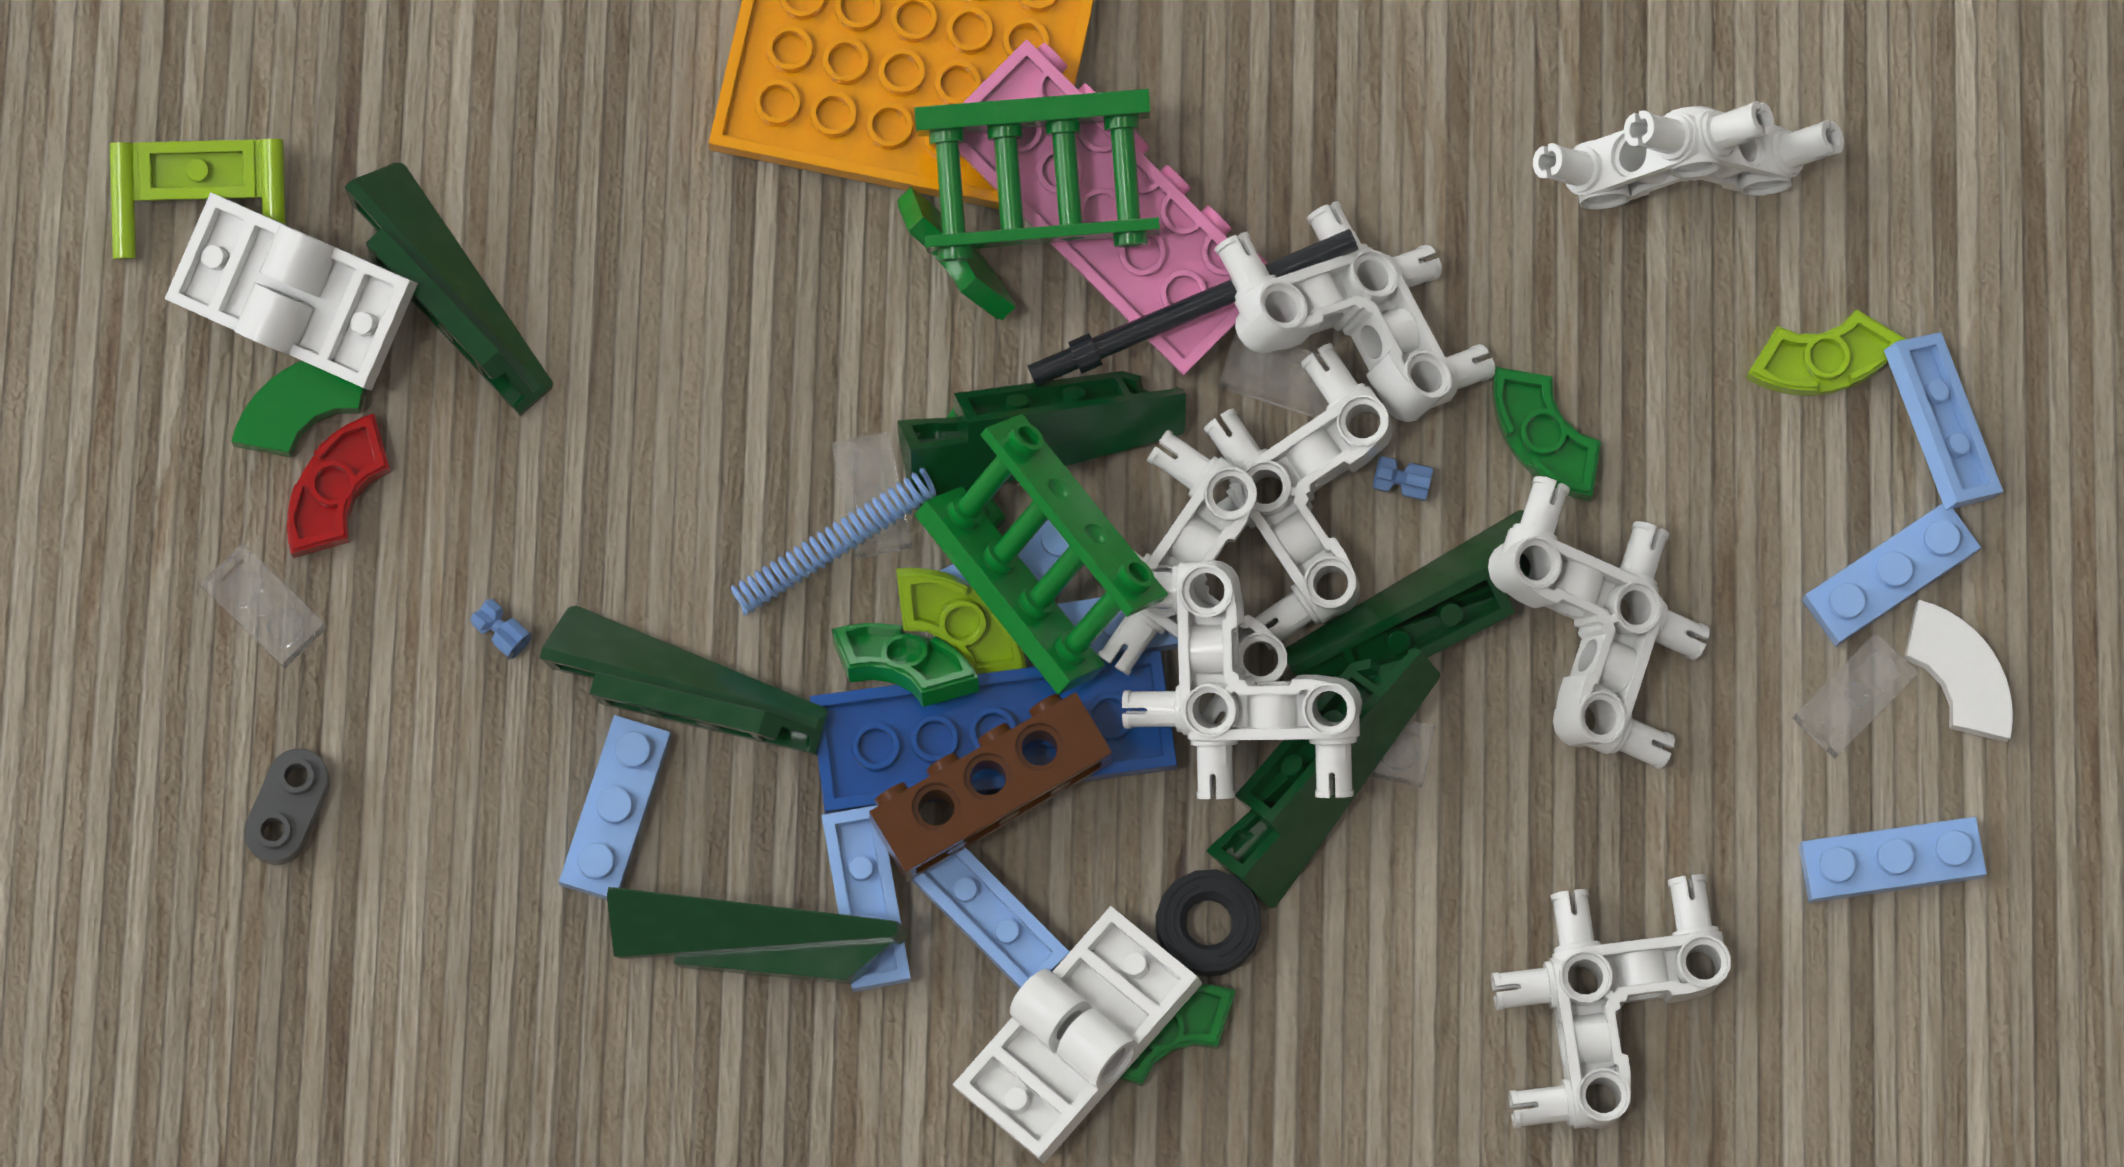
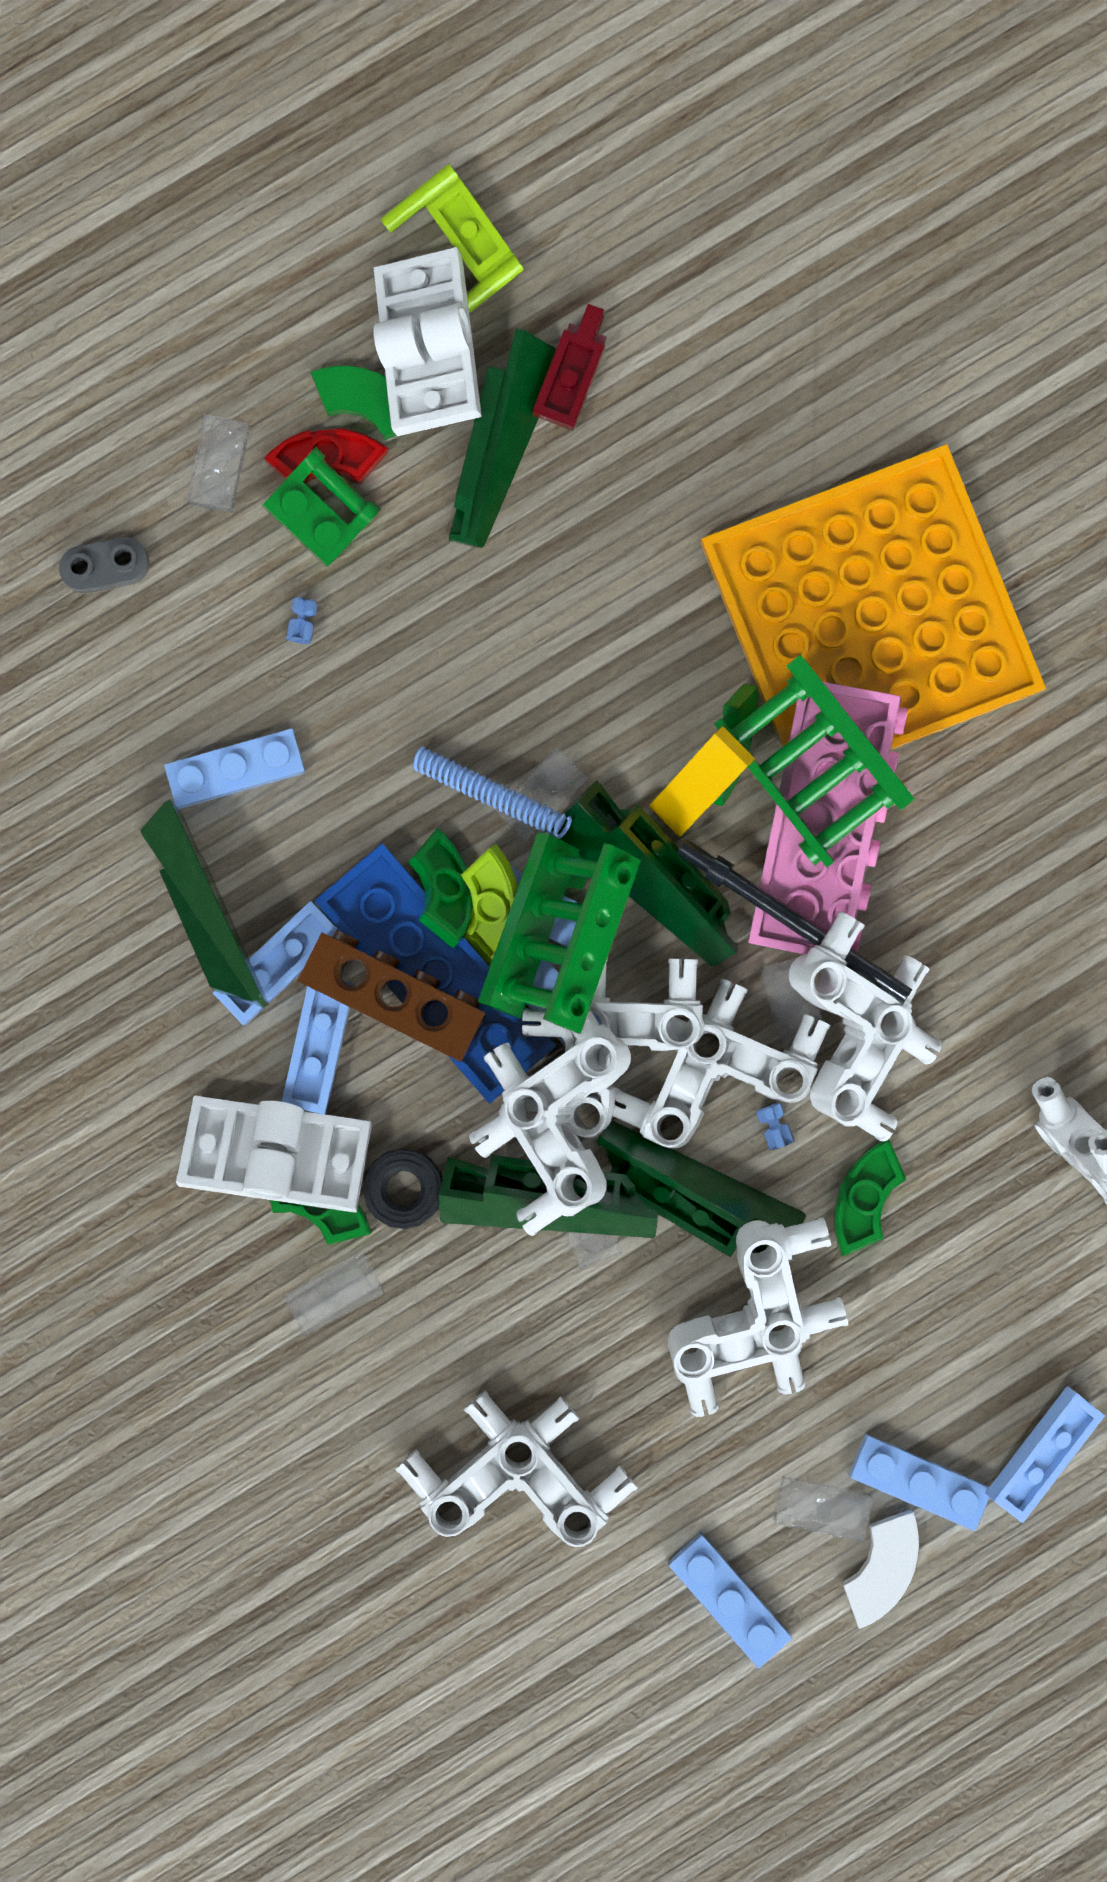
camera: 55 degrees right, 10 degrees up
(391, 544) = (312, 519): none -> green plate
(428, 162) = (572, 371): none -> dark red hinge
(678, 686) = (335, 755): dark green wedge -> none
(977, 306) = (701, 781): none -> yellow tile
(1276, 1075) = (334, 1294): none -> clear plate
(1824, 360) = (1034, 1348): lime tile -> none

